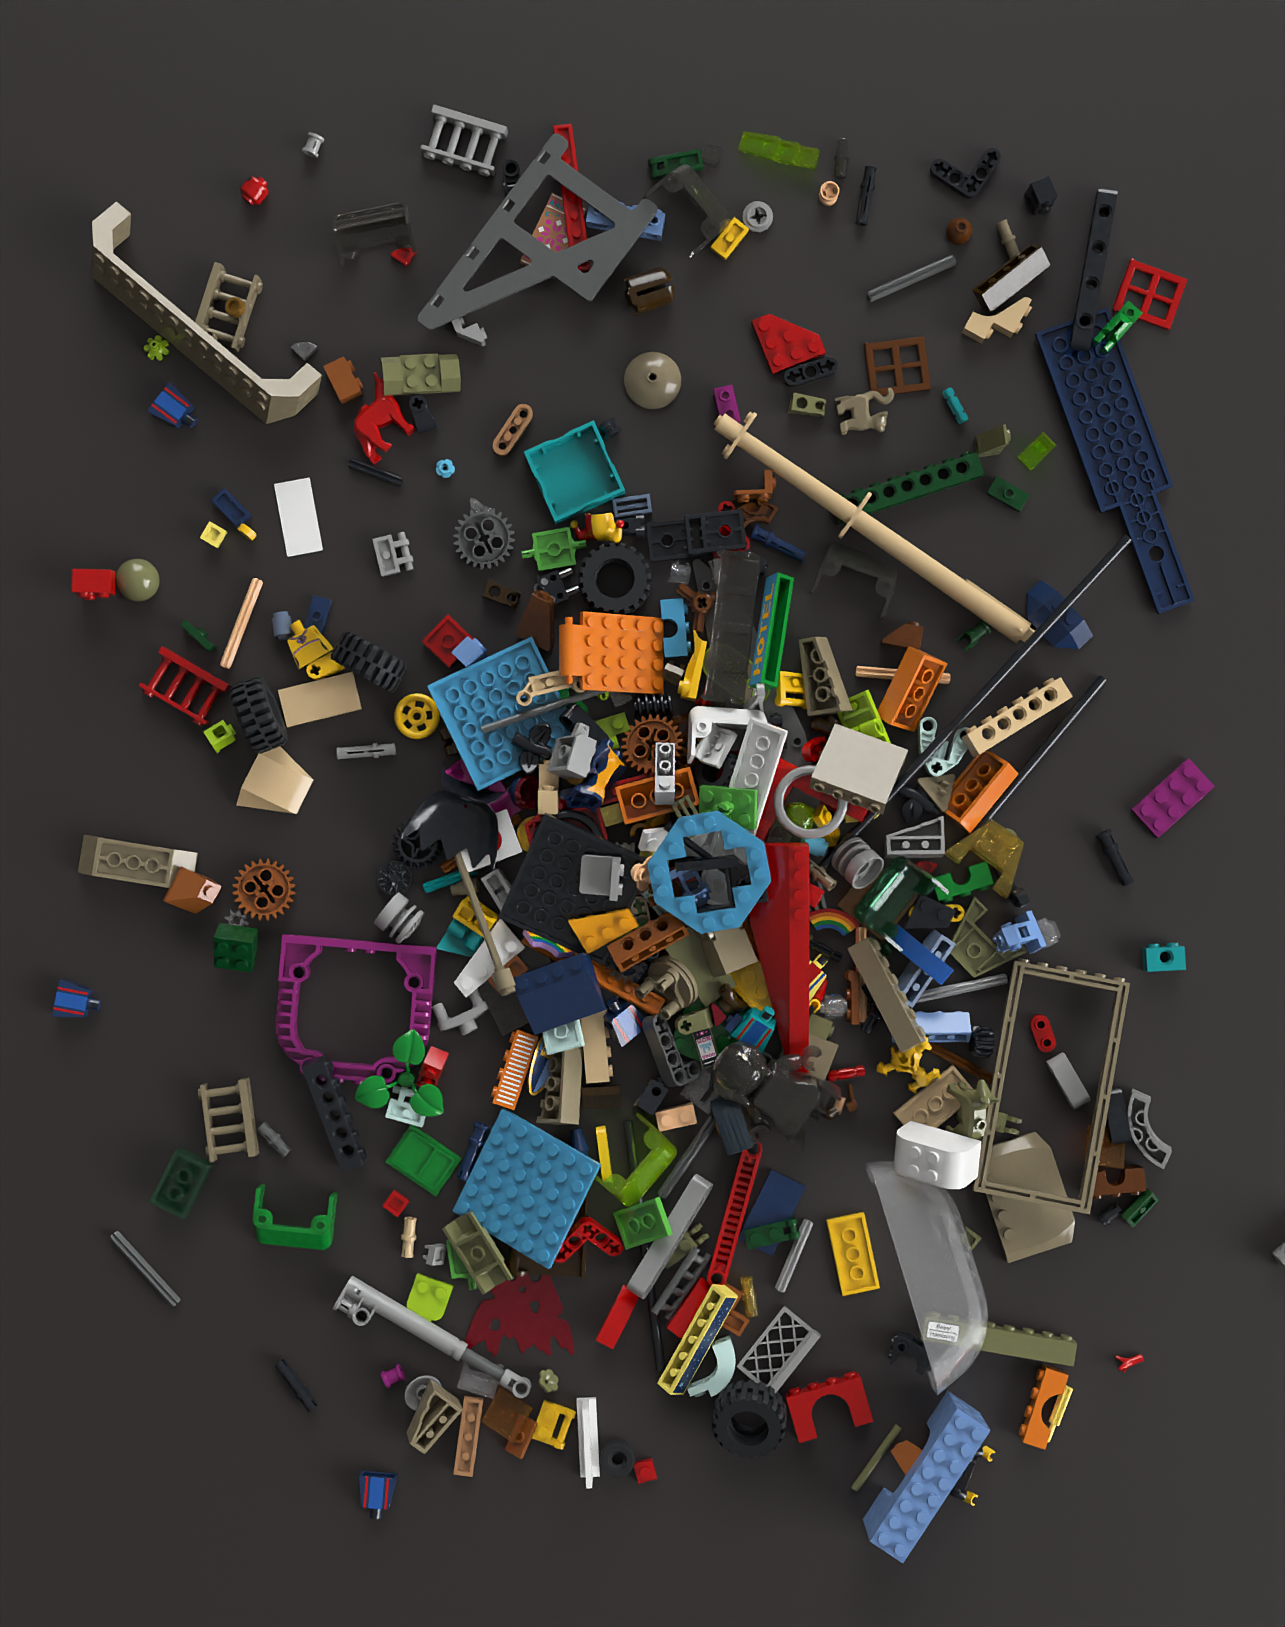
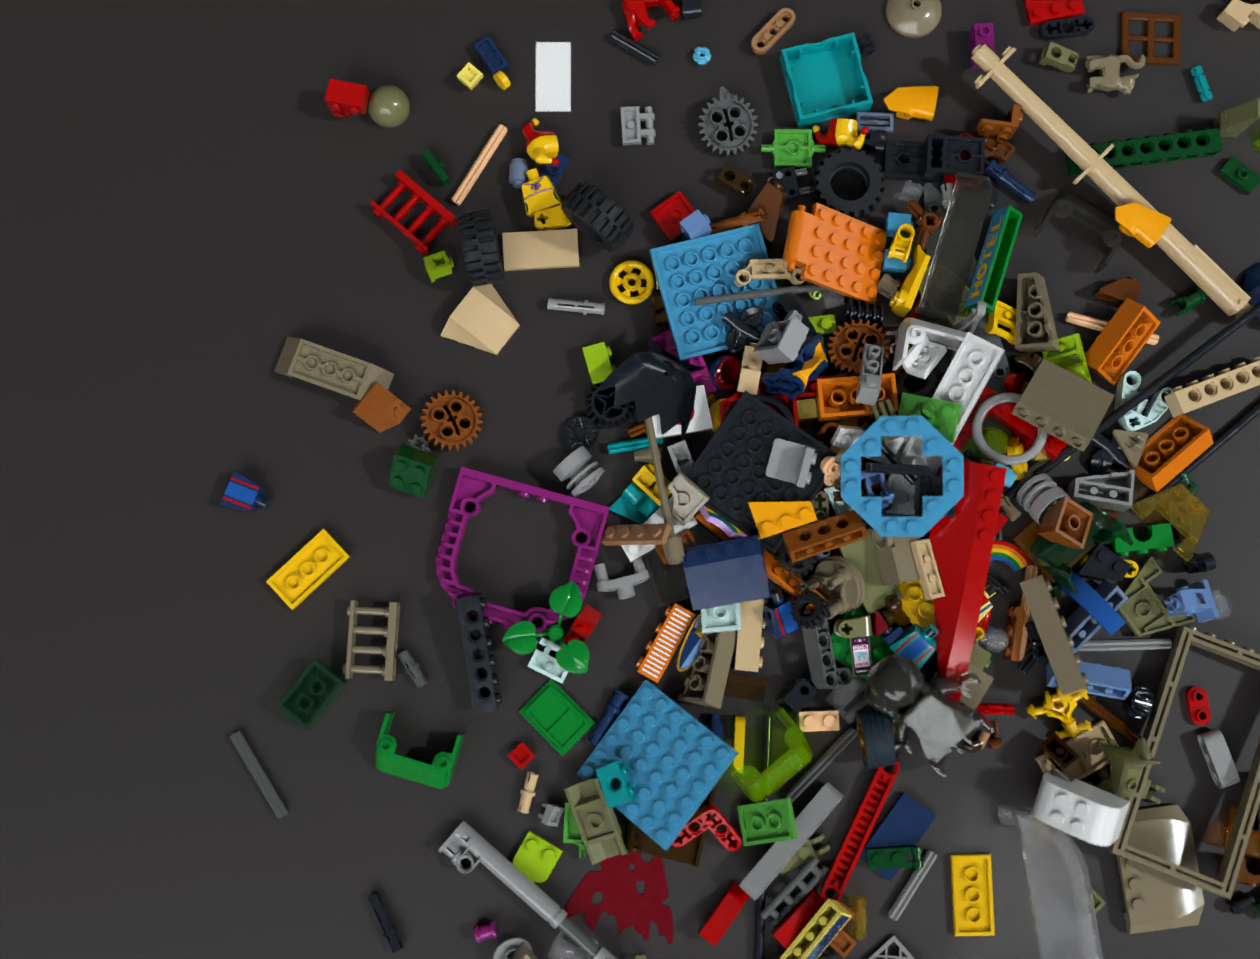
camera: 10 degrees right, 5 degrees down
(152, 1062) = (308, 569): none -> yellow plate
(299, 593) = (541, 145): none -> yellow piece
(399, 805) = (598, 362): none -> lime brick
(465, 971) = (636, 534): none -> medium nougat plate
(480, 1210) = (607, 777): none -> teal brick
(508, 927) = (687, 498): none -> dark tan tile
(516, 635) = (743, 219): none -> dark orange pin
(655, 1014) = (816, 617): none -> black tyre
(666, 479) = (913, 102): none -> light orange panel
(676, 633) = (901, 246): none -> yellow piece
(752, 954) = (927, 569): none -> tan tile
(882, 884) = (1066, 523): none -> dark orange slope
(910, 568) = (1141, 223): none -> light orange panel
(914, 1109) = (1062, 757): none -> dark brown brick
(1005, 821) = (1191, 486): none -> clear green hand

